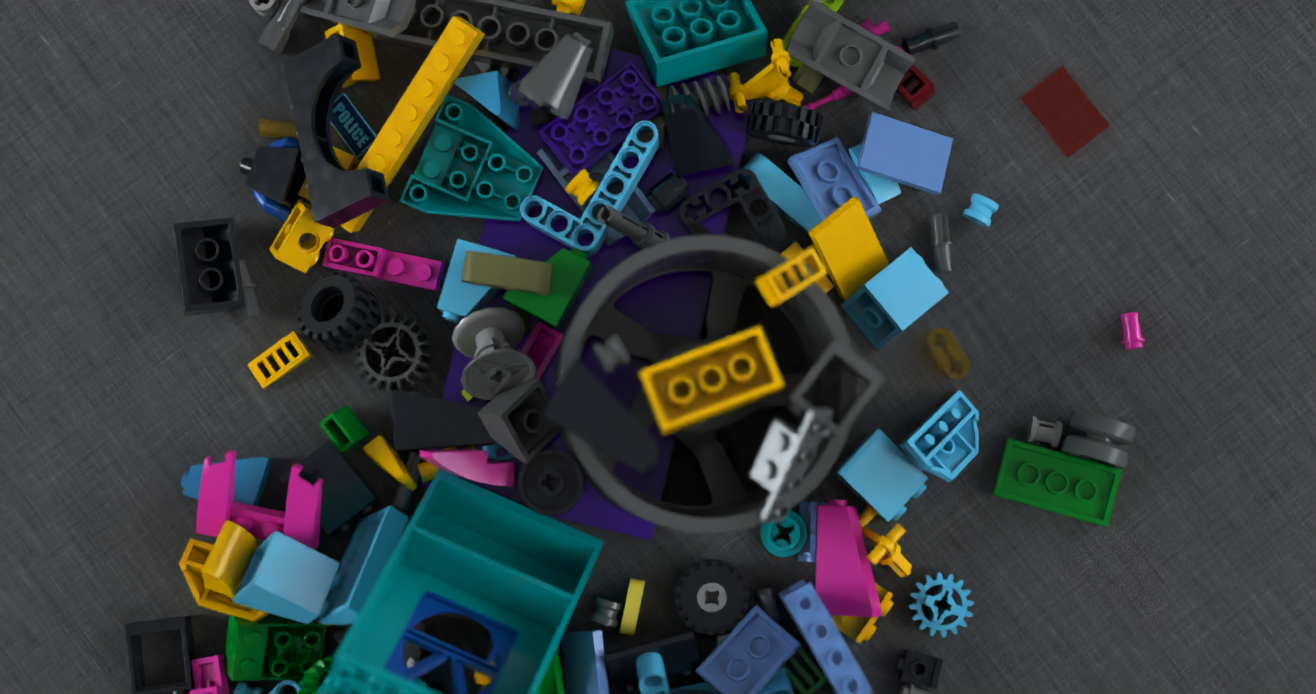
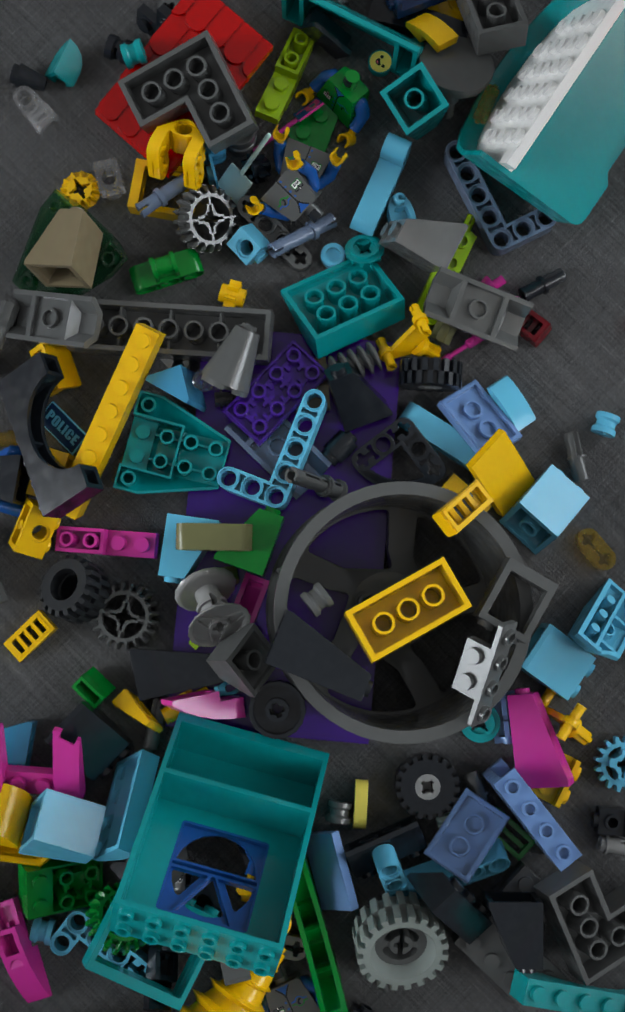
camera: 10 degrees left, 0 degrees up
(582, 187) = (267, 453): yellow wheel -> none
(904, 153) = (534, 385): medium blue tile -> none

